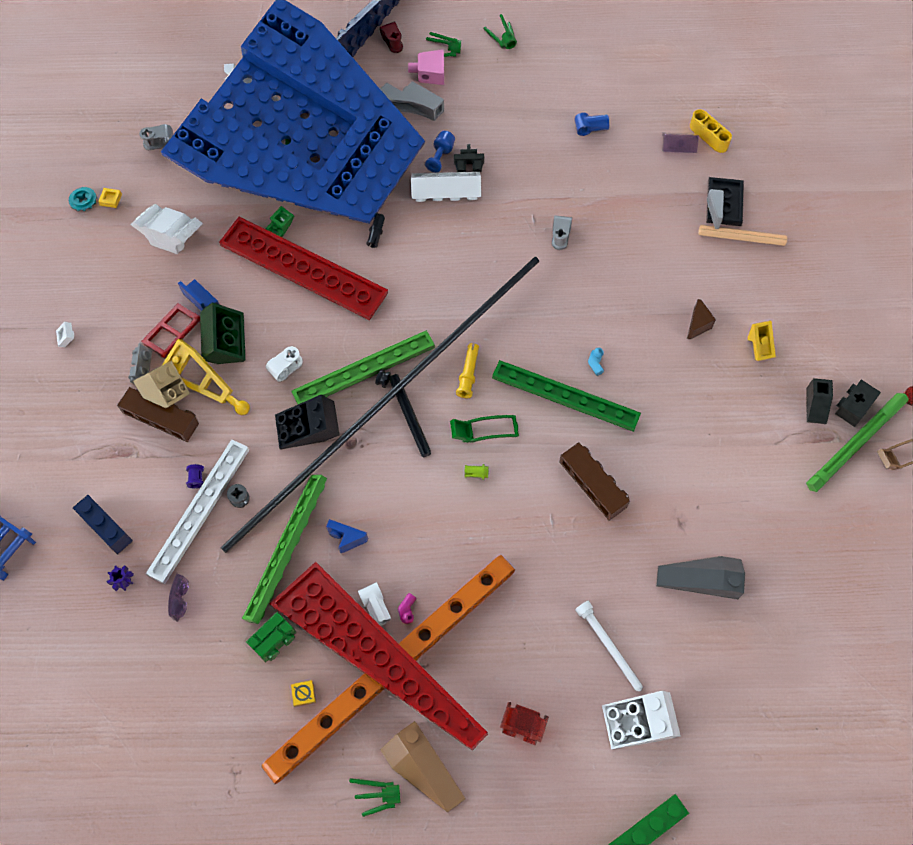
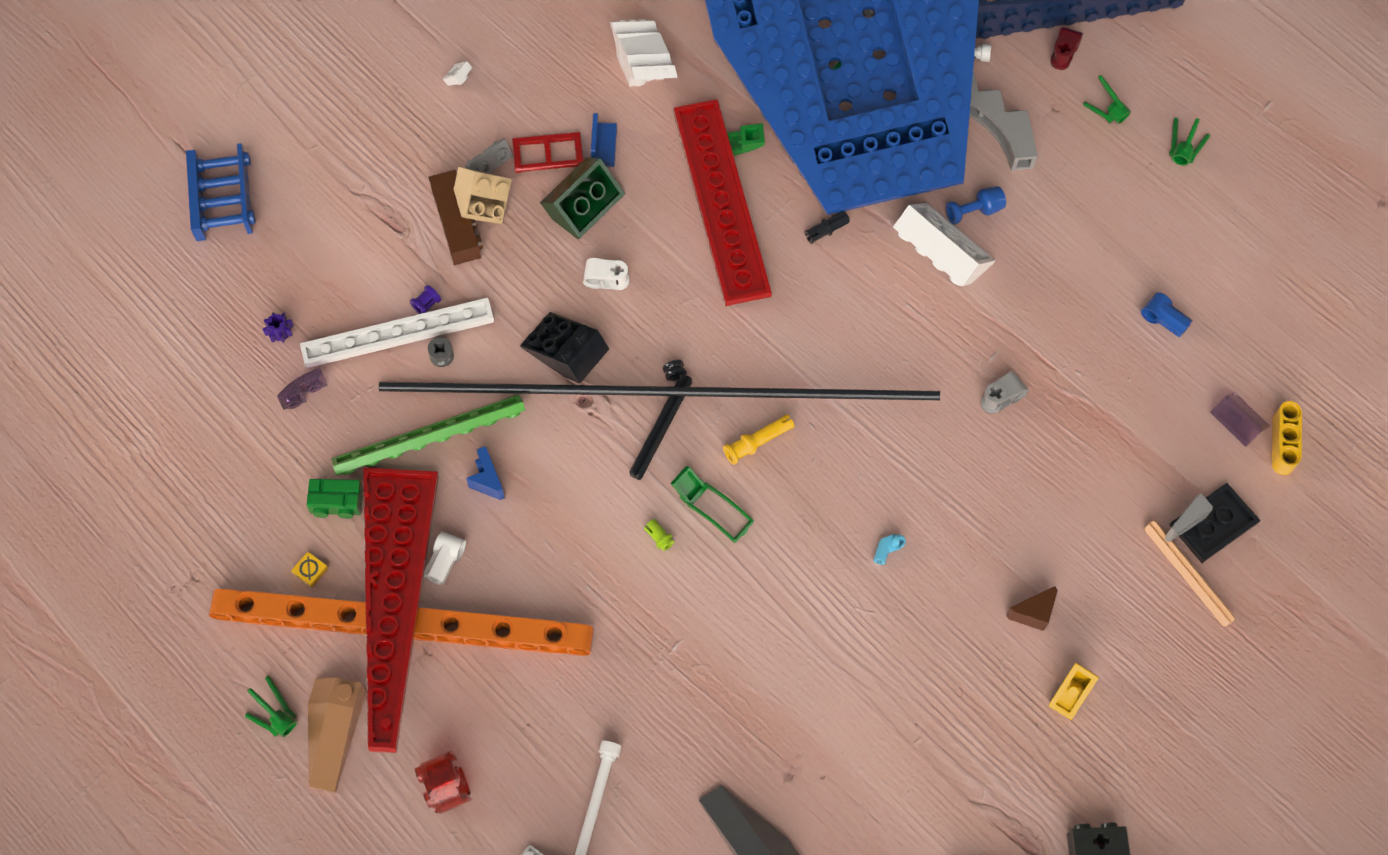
camera: 45 degrees right, 0 degrees up
(102, 524) = (312, 257): dark blue arch -> none
(181, 354) = (525, 182): yellow plate -> none
(365, 367) = (671, 346): bright green plate -> none
(404, 609) = (464, 588): dark pink arm -> none
(429, 67) = (1066, 111): bright pink torso -> none
(468, 156) = (1002, 246): pearl dark grey hips -> none
(566, 395) = (821, 551): green plate -> none
(594, 481) = (751, 651): reddish brown brick -> none
(819, 400) = (1057, 802): pearl dark grey slope -> none

